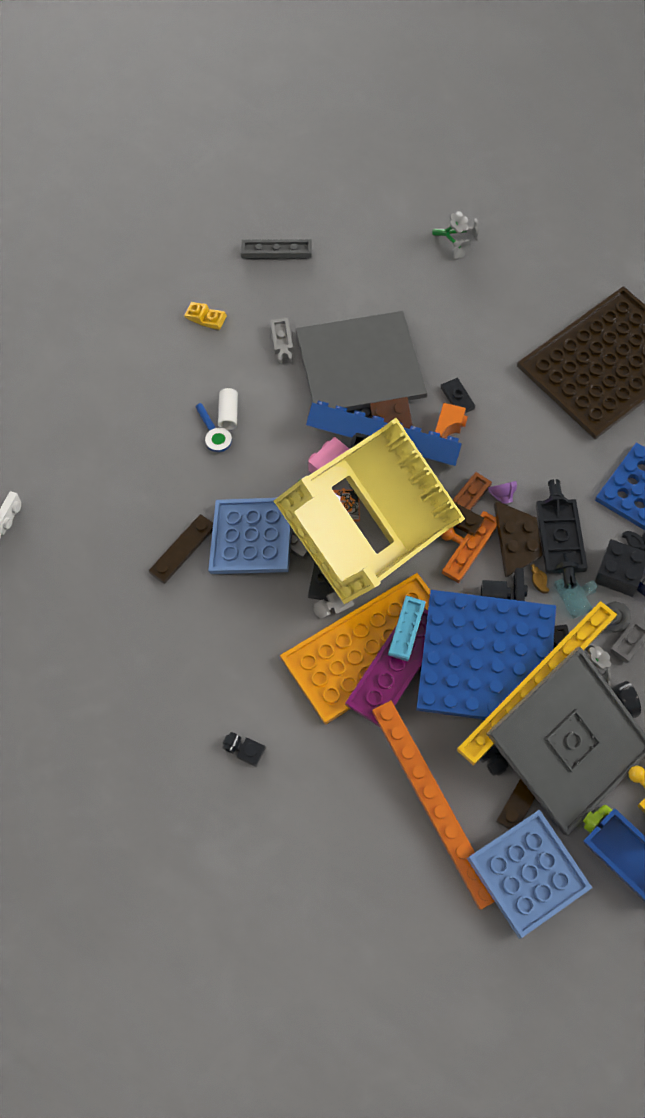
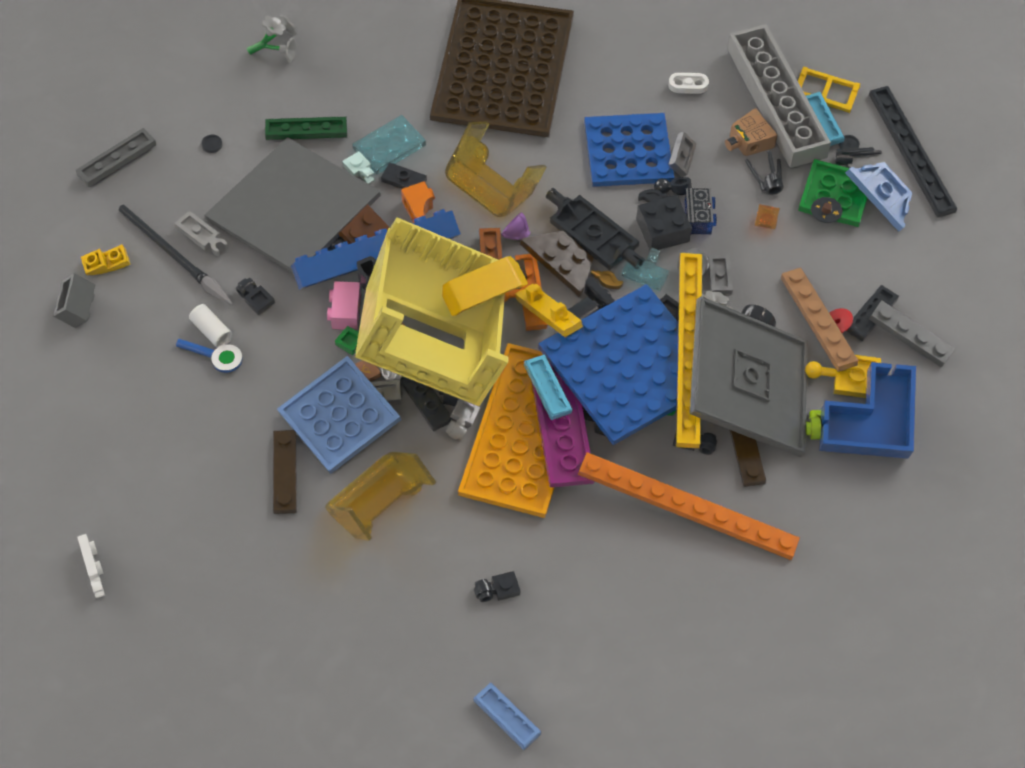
camera: 45 degrees left, 5 degrees down
(157, 329) = (74, 300): none -> dark grey brick
(161, 849) = (507, 716): none -> medium blue plate
(219, 611) = (376, 490): none -> clear yellow windscreen
(254, 365) = (208, 283): none -> black piece
(276, 409) = (255, 296): none -> black plate
(349, 281) = (211, 143): none -> black piece
(421, 313) = (306, 128): none -> dark green plate
(427, 515) = (482, 285): none -> yellow piece
(433, 365) = (359, 166): none -> light aqua plate
(463, 571) = (549, 310): none -> yellow hinge
(471, 364) = (389, 143): none -> clear light blue plate
(512, 437) = (483, 184): none -> clear yellow windscreen
(529, 874) = (804, 500): medium blue plate -> none

